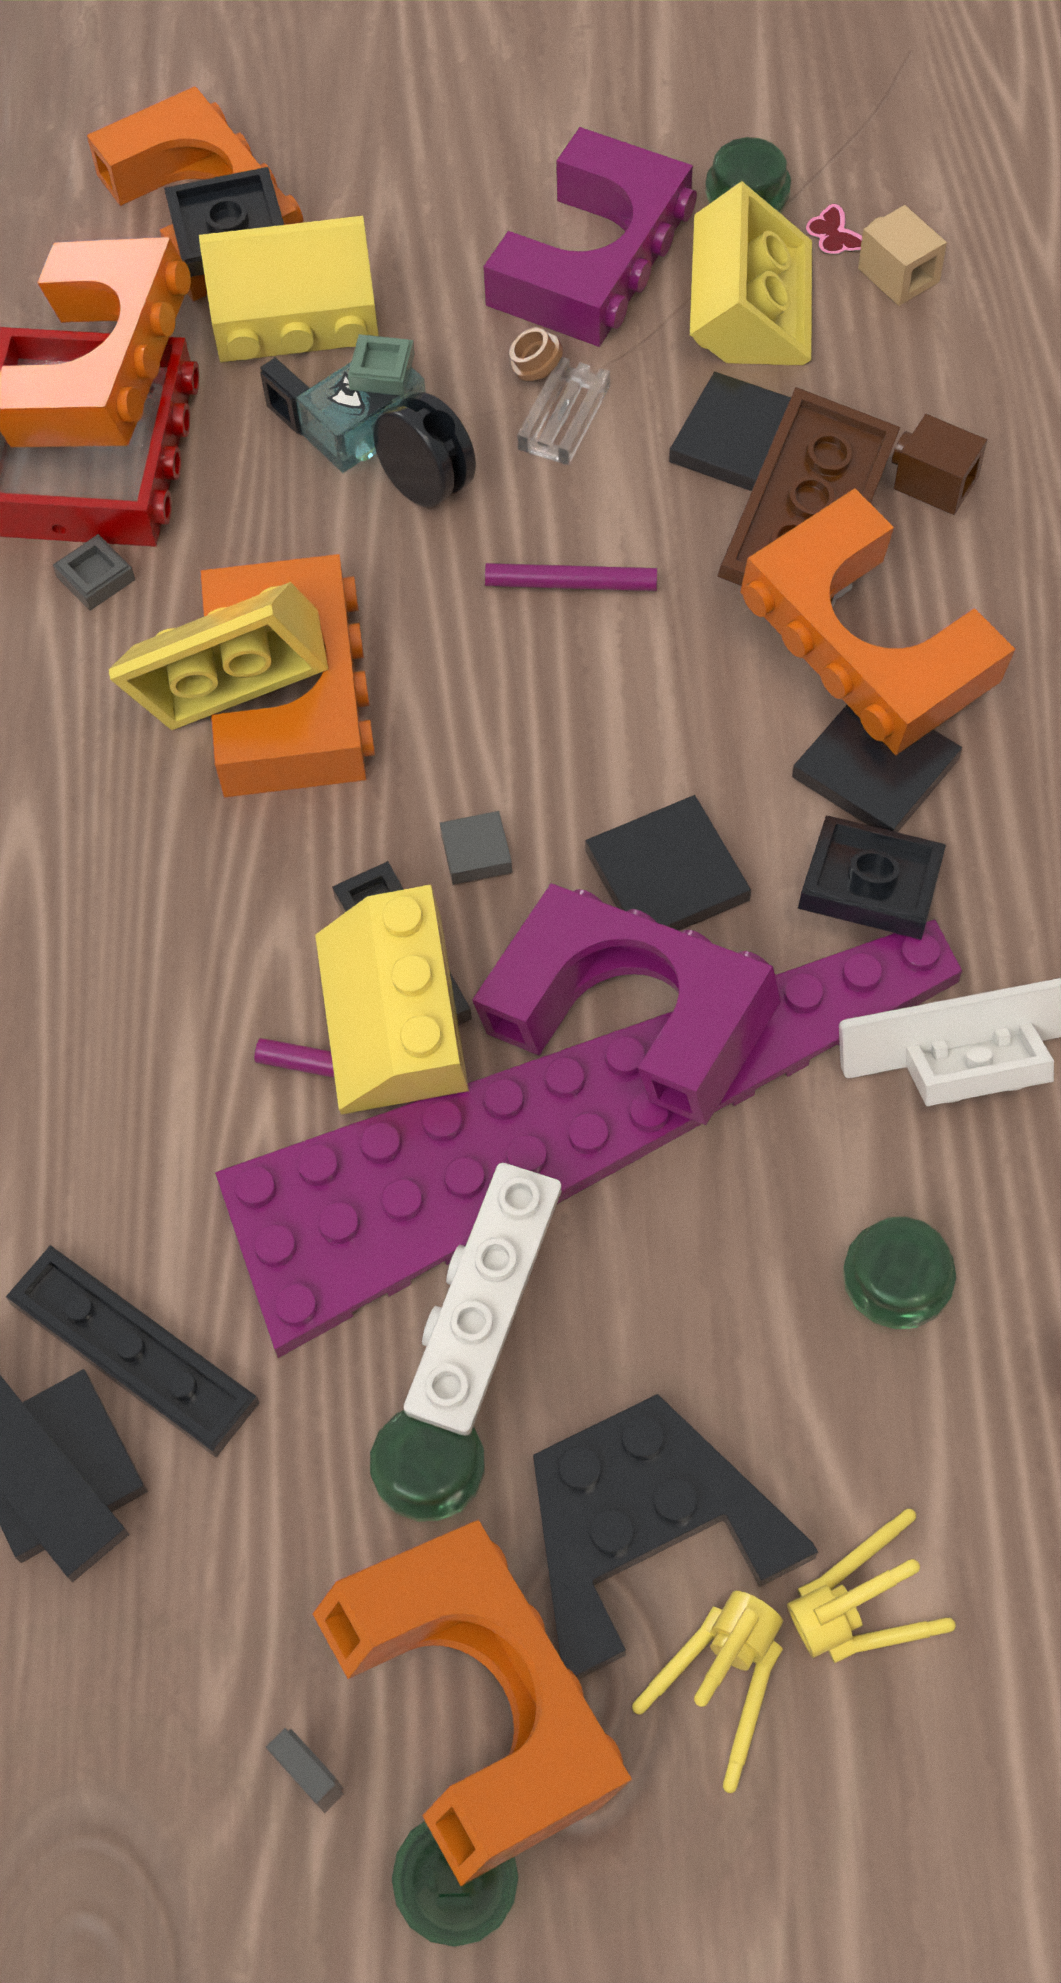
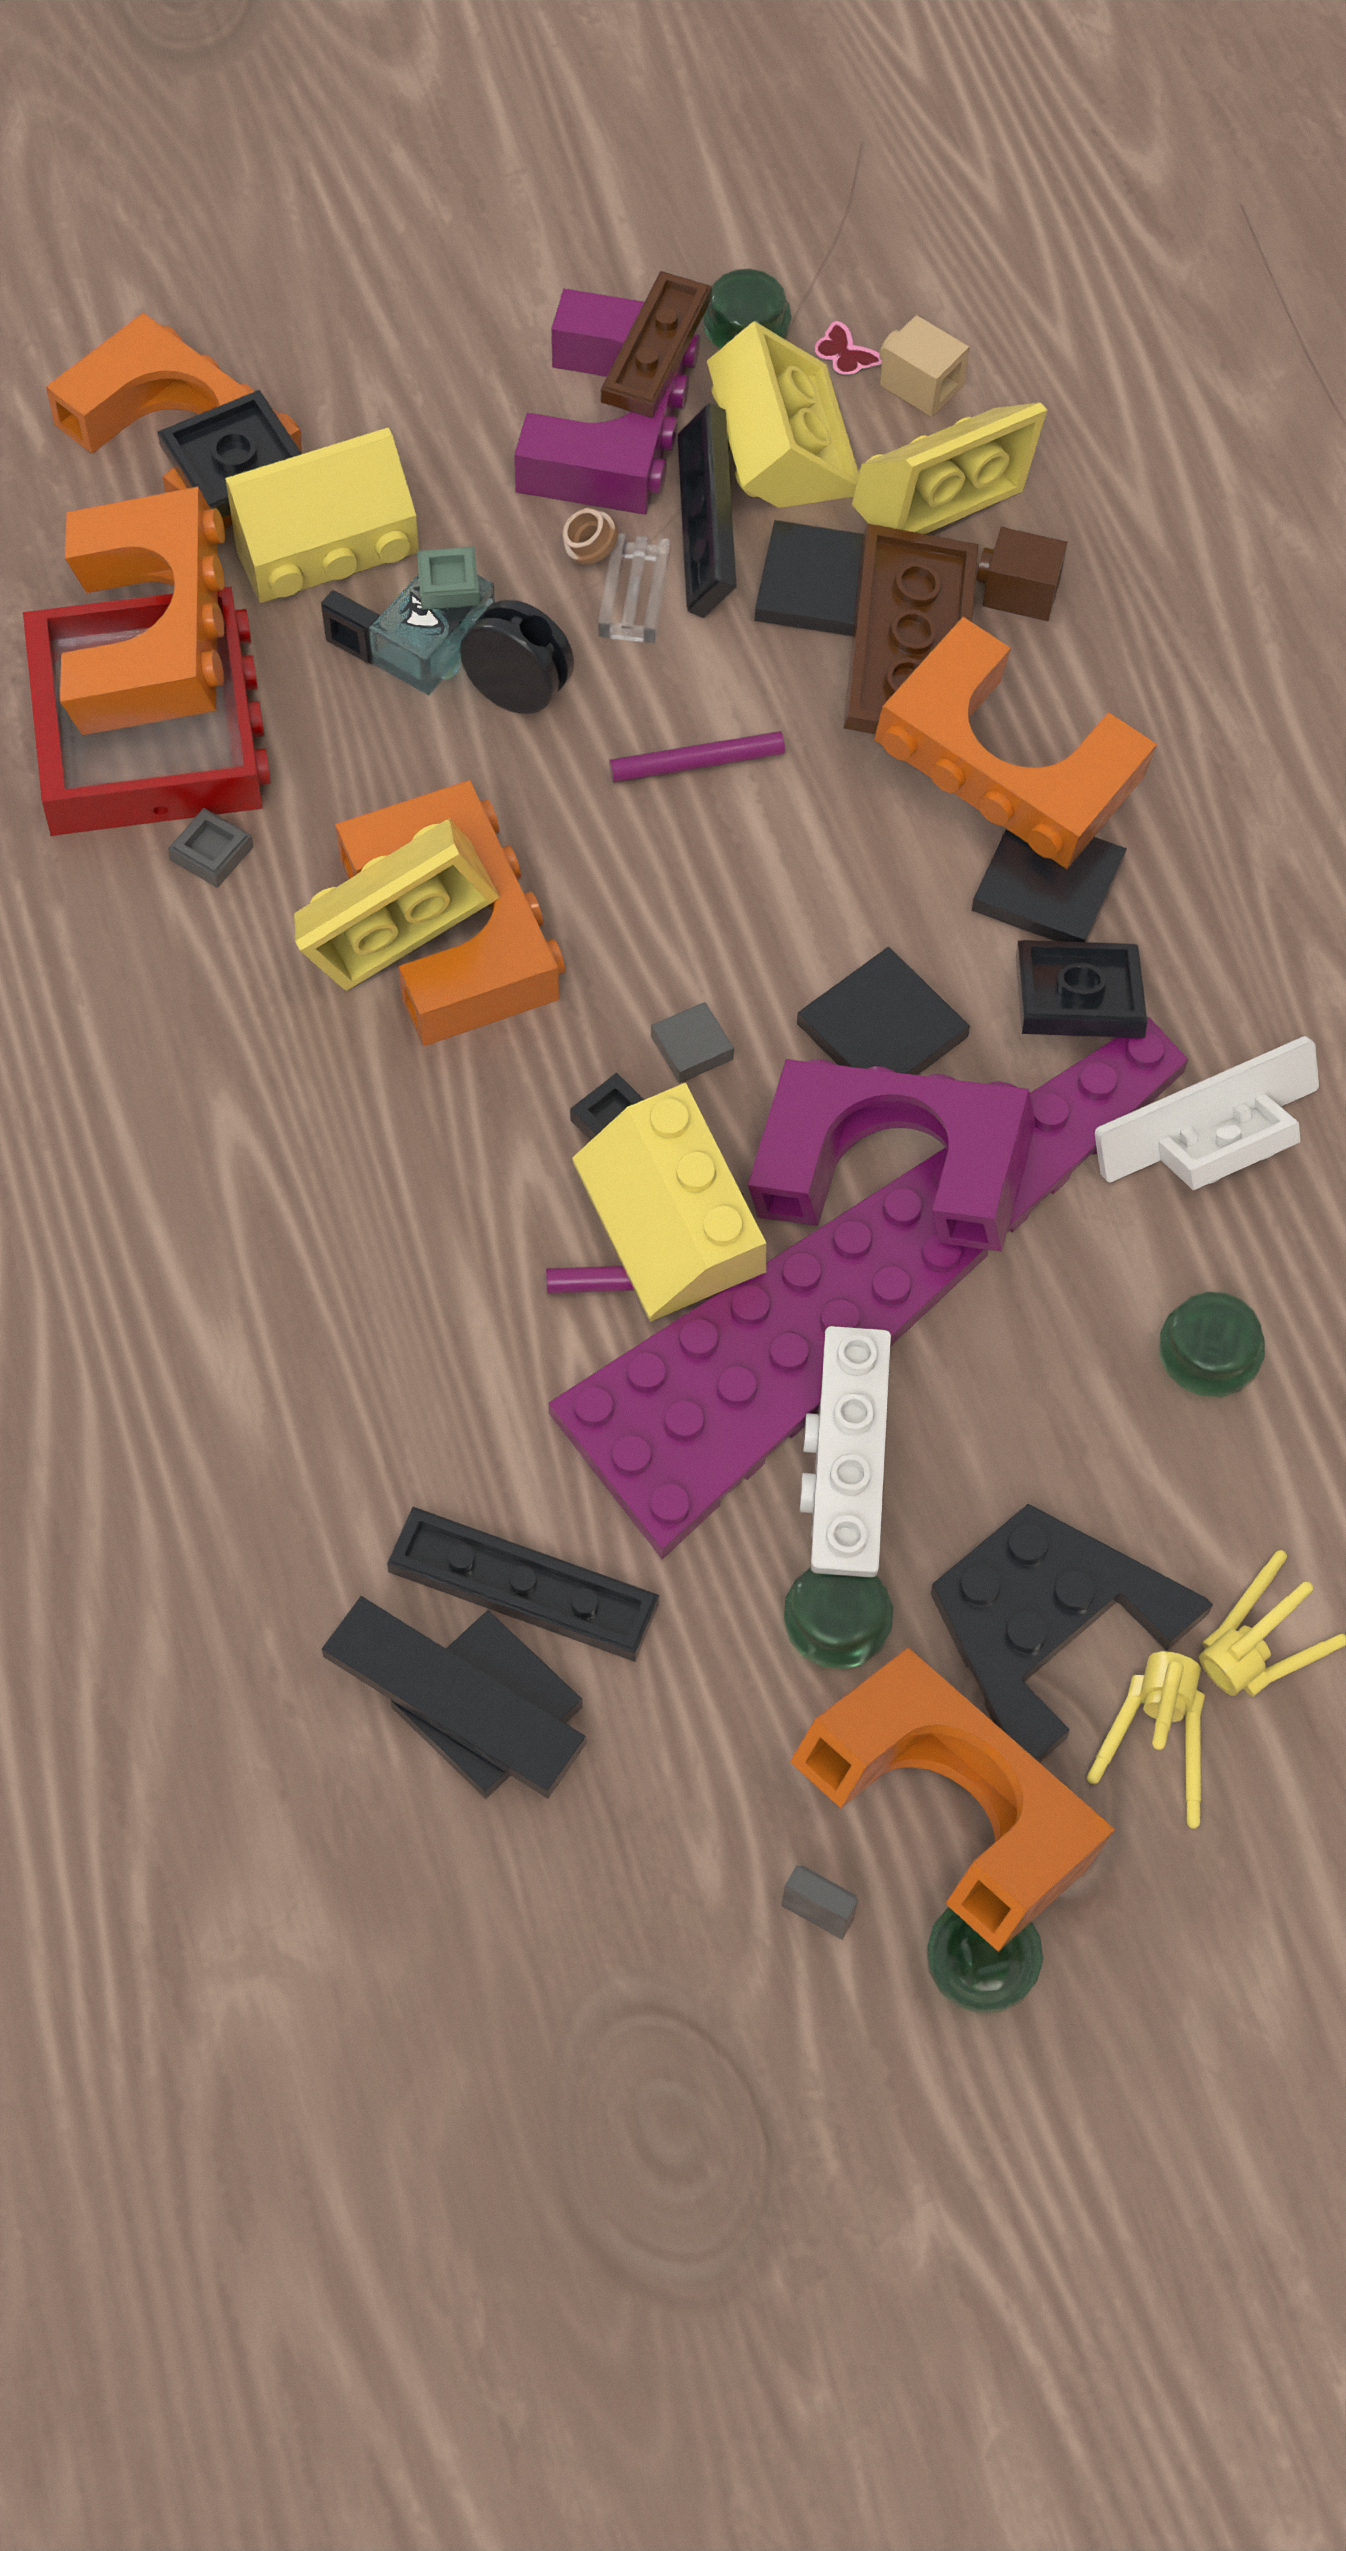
camera: 20 degrees left, 0 degrees up
(646, 189) = (656, 344): none -> reddish brown tile
(651, 351) = (706, 510): none -> black tile
(894, 354) = (951, 470): none -> light yellow slope

